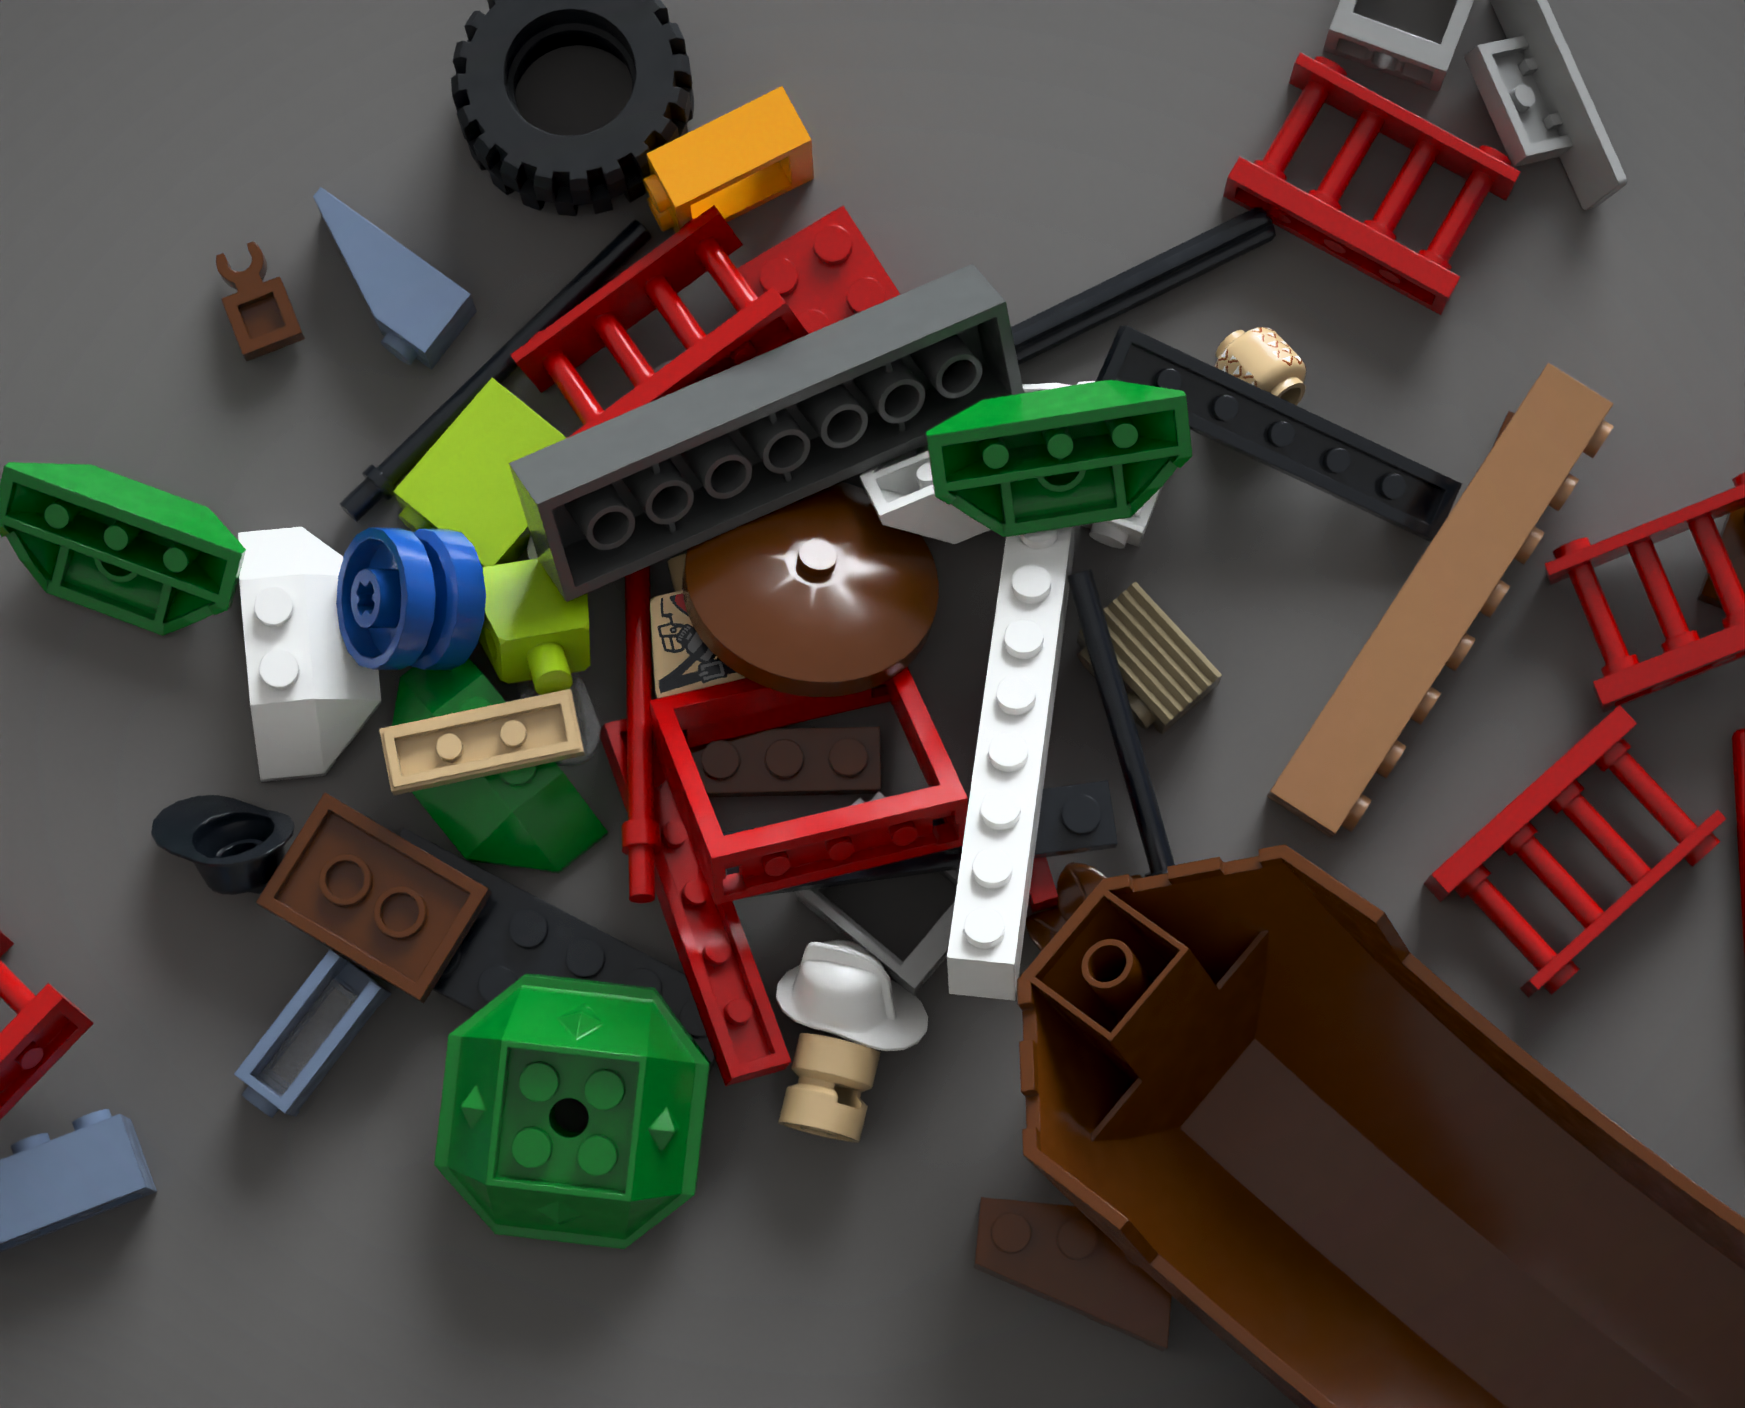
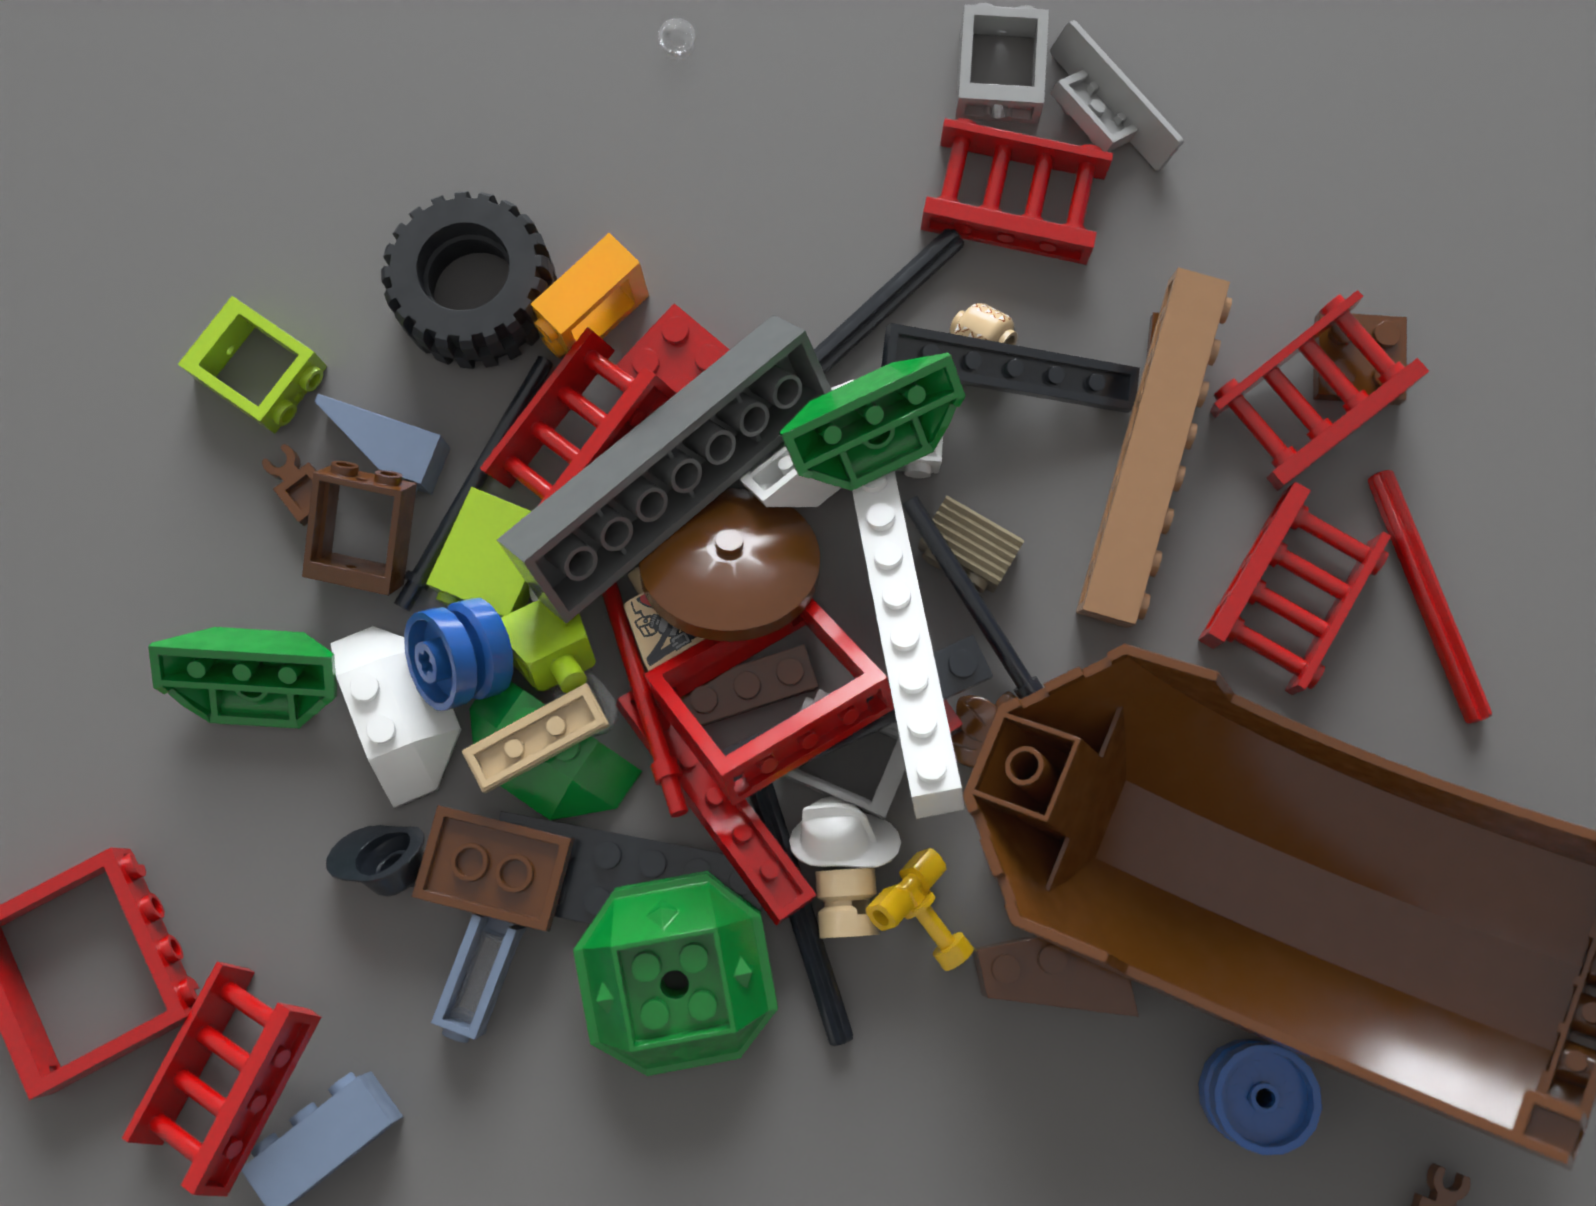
camera: 15 degrees left, 0 degrees up
(205, 73) = (224, 338): none -> lime window
(295, 443) = (346, 570): none -> reddish brown window
(764, 1105) = (807, 932): none -> black axle
(919, 1108) = (914, 899): none -> yellow bar

